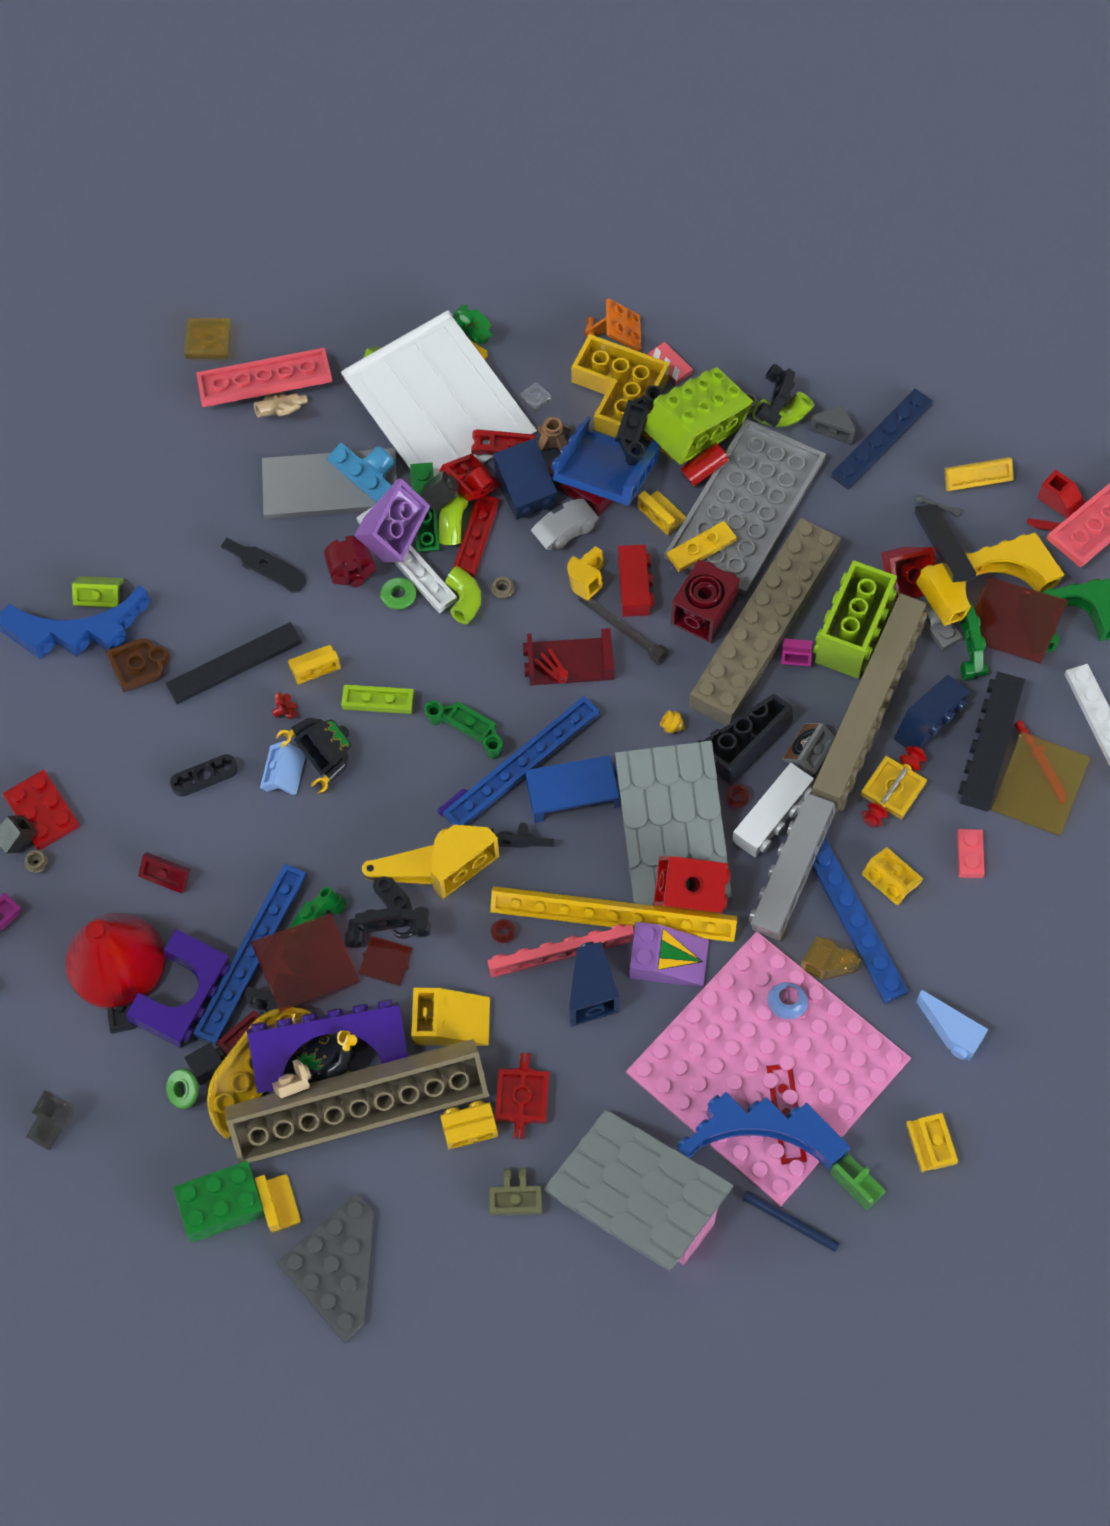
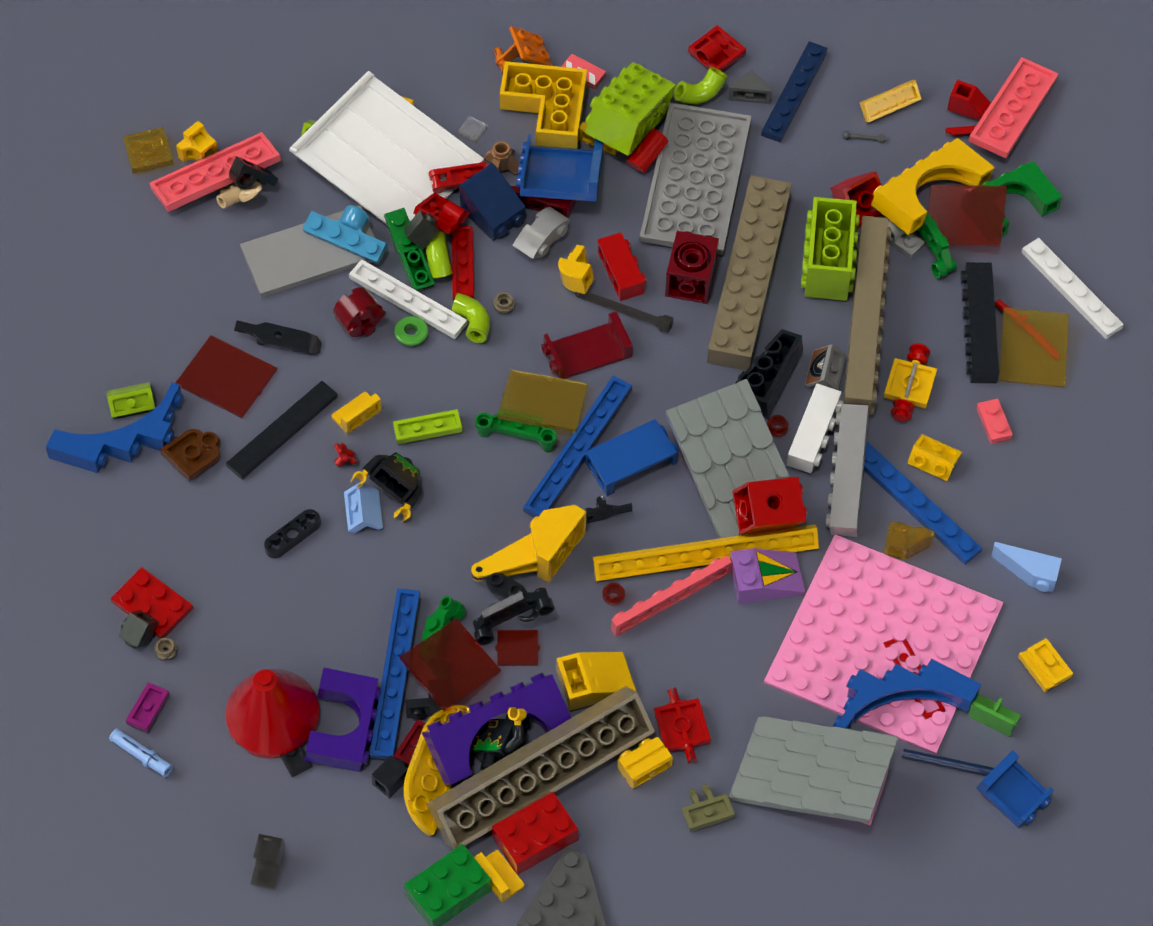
camera: 20 degrees left, 5 degrees down
(164, 872) = (289, 626): dark red plate -> none
(174, 1088) = (369, 808): bright green piece -> none
(200, 592) = (226, 376): none -> clear red piece
(255, 343) = (196, 143): none -> yellow brick
(290, 1083) = (482, 764): tan bracket -> none
(296, 386) = (251, 174): none -> black plate
(328, 1169) = (535, 833): none -> red brick
(393, 522) = (390, 268): medium lavender slope -> none
(451, 801) = (519, 508): dark purple piece -> none
(473, 324) = (395, 77): green plate -> none
(503, 703) = (543, 401): none -> clear yellow piece
(557, 673) = (578, 361): red piece -> none
(593, 986) = (712, 615): dark blue slope -> none
(632, 425) = (575, 130): black plate -> none
(661, 511) = (622, 202): yellow panel -> none
(672, 722) = (698, 378): yellow plate -> none
(701, 546) = (671, 221): yellow plate -> none
(780, 395) = (695, 72): black plate -> none
(787, 1011) = (882, 591): medium blue piece -> none
(796, 652) = (785, 291): dark pink piece -> none
(816, 374) = (717, 49): none -> red plate
(849, 1275) = (1014, 791): none -> blue panel
(931, 713) = (921, 312): dark blue wedge -> none
(945, 543) = (885, 164): black tile -> none

